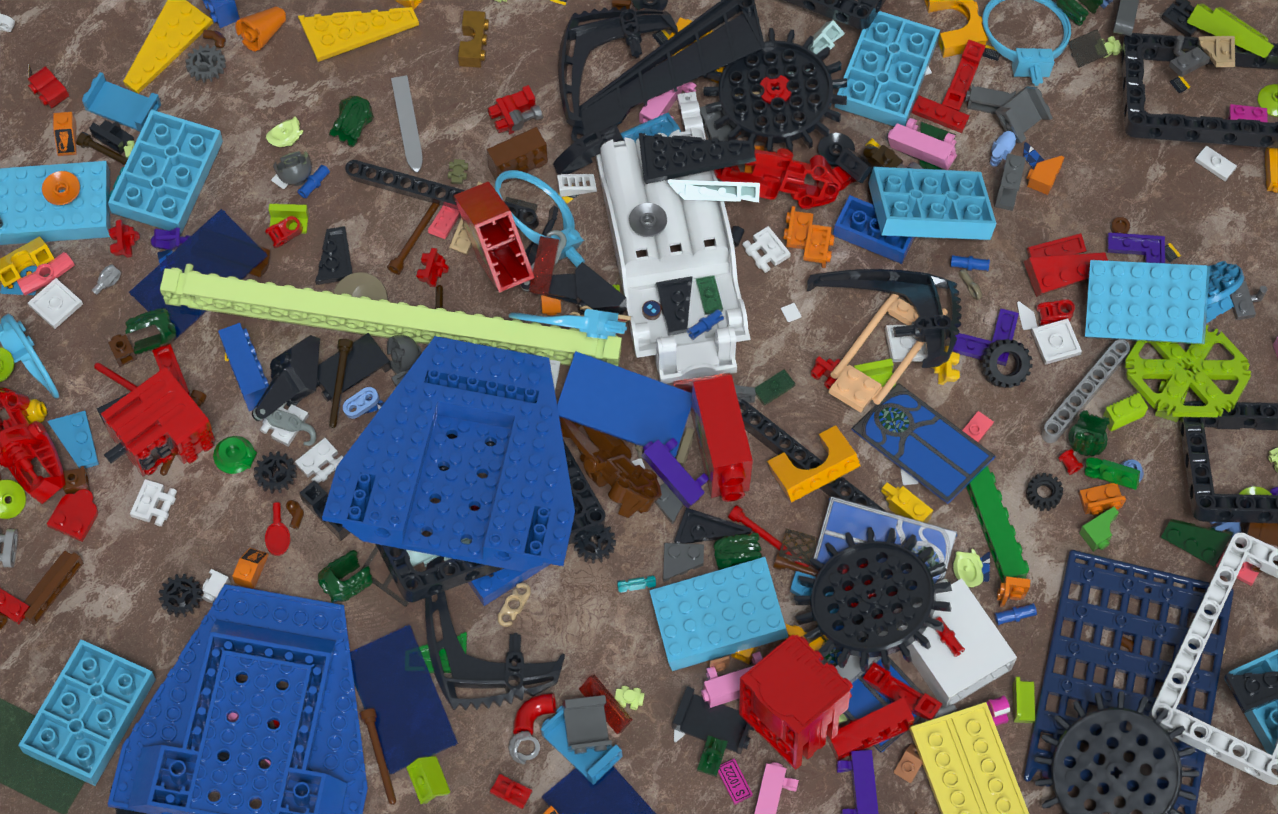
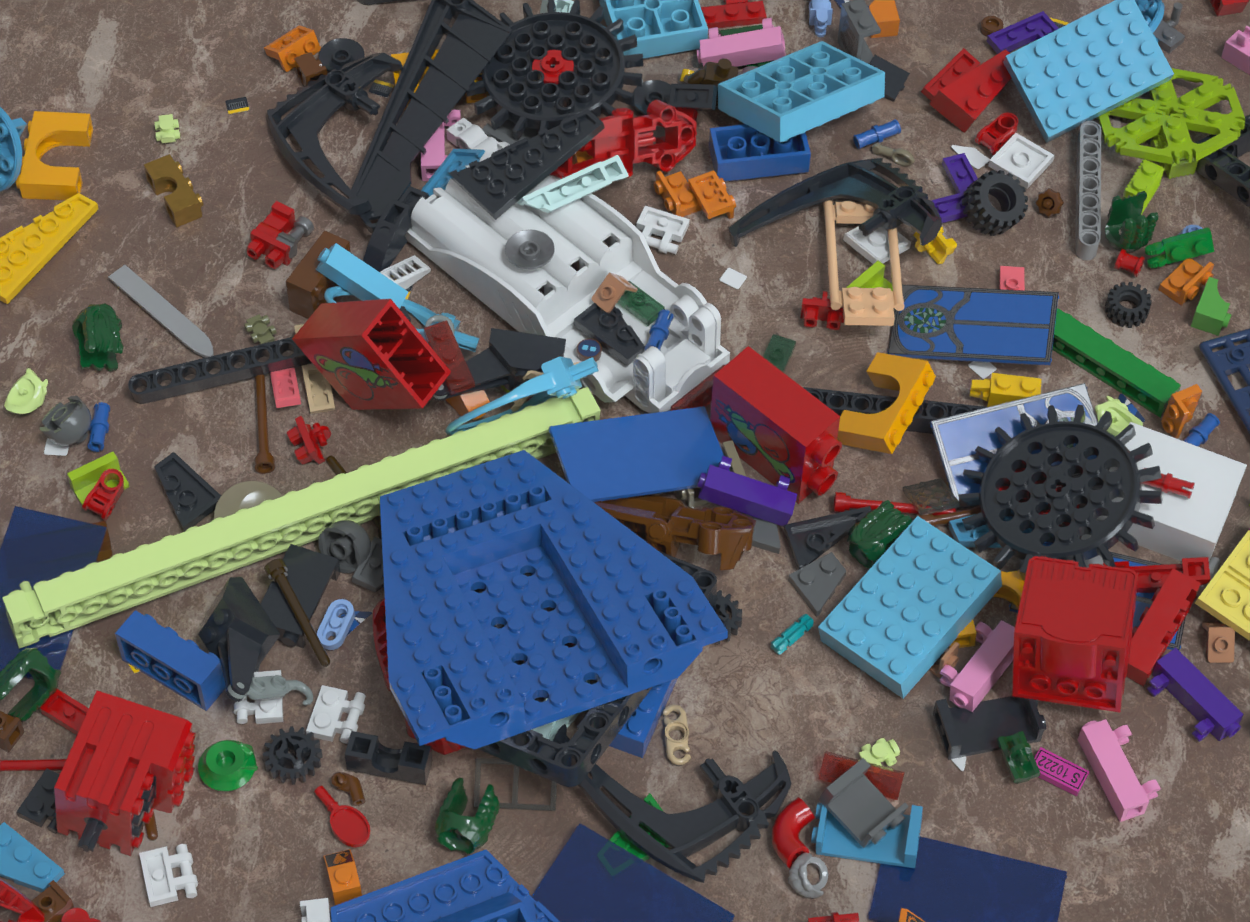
camera: 35 degrees left, 10 degrees down
(536, 175) = (358, 276): none -> medium azure brick
(693, 276) = (611, 291): none -> nougat bracket
(1010, 223) = (894, 77): none -> black piece
(1050, 384) = (1049, 202): none -> reddish brown piece

